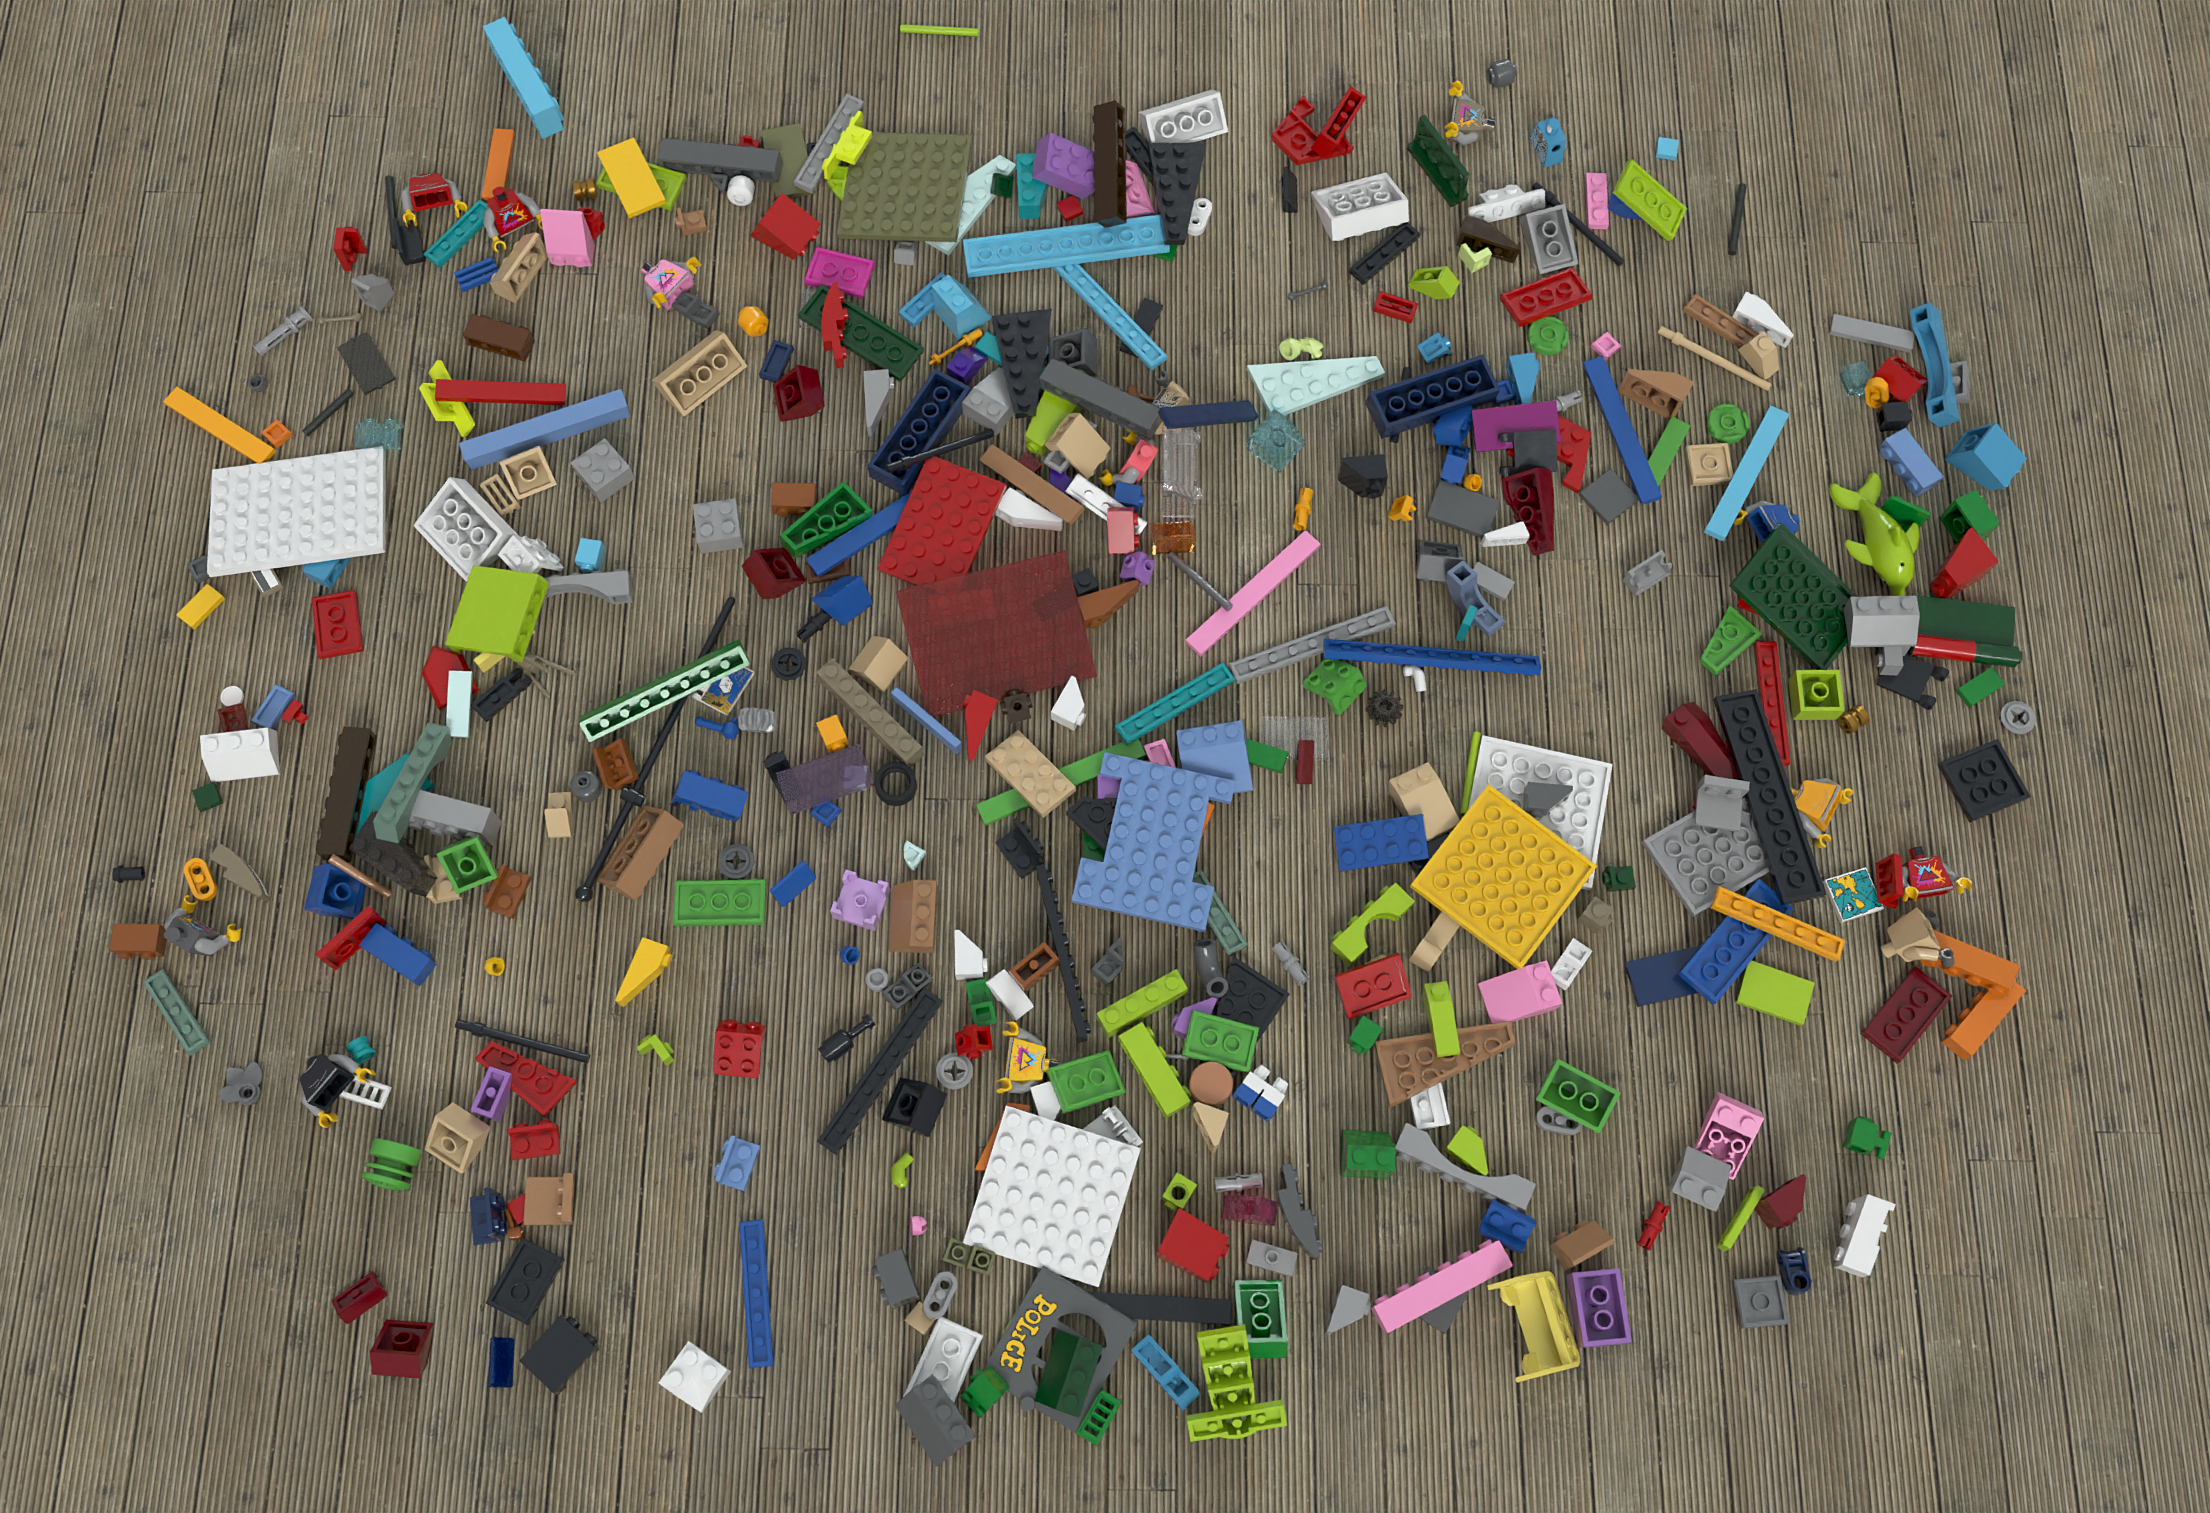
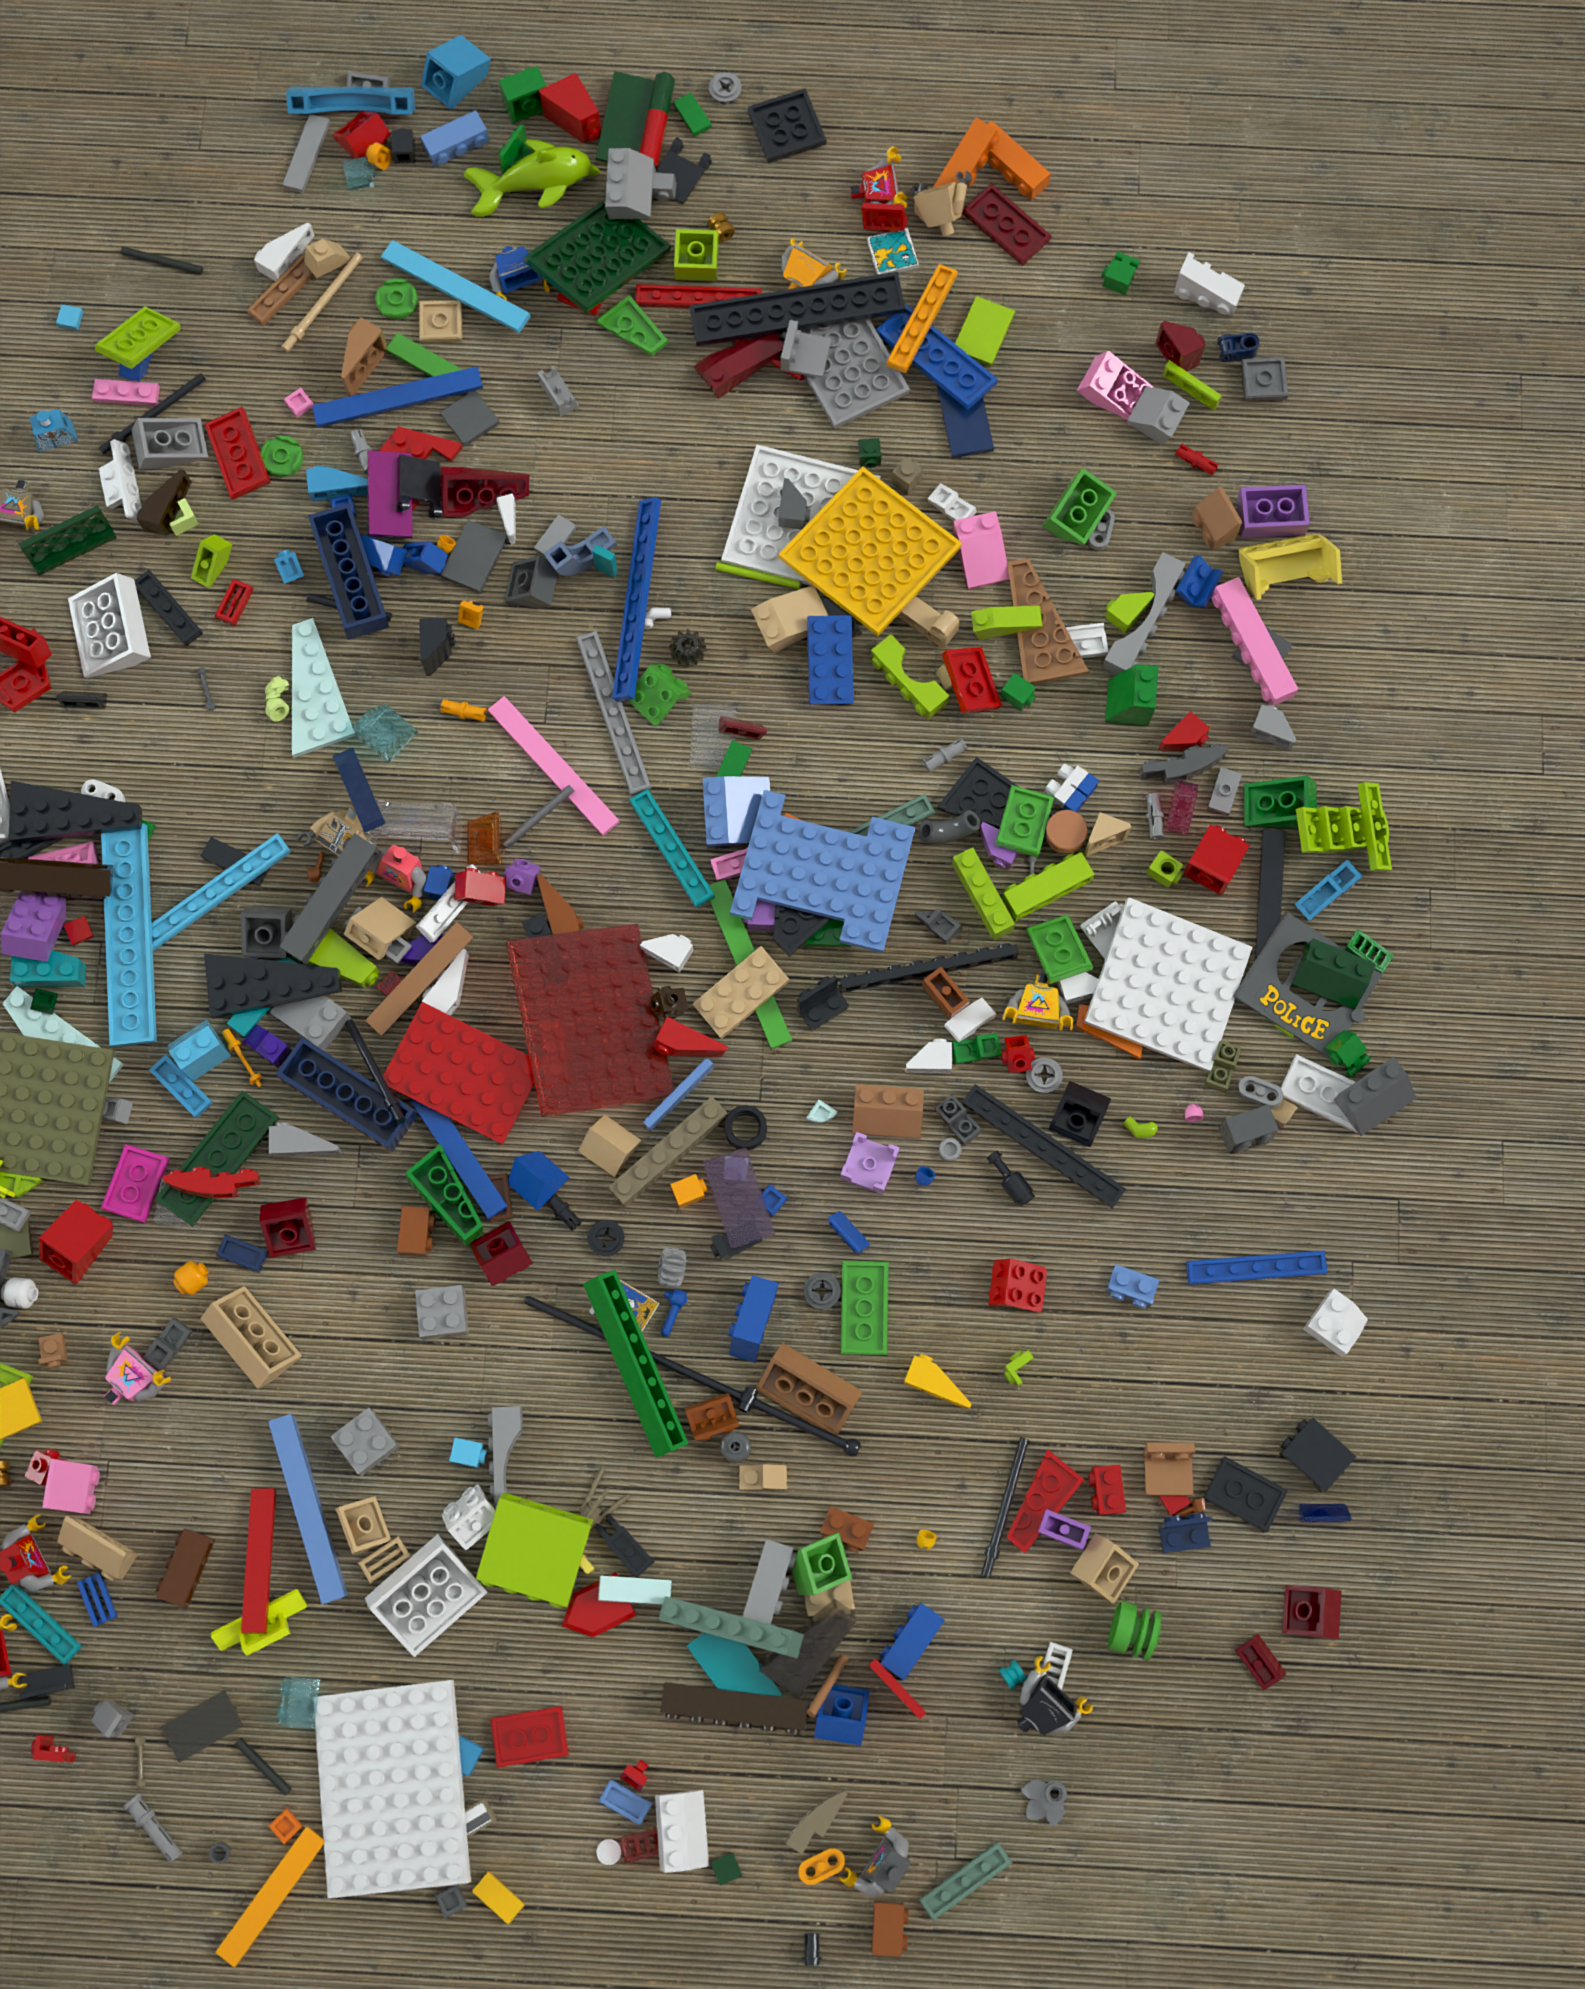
camera: 85 degrees left, 5 degrees up
(1330, 1214) = (1187, 733): none -> red slope

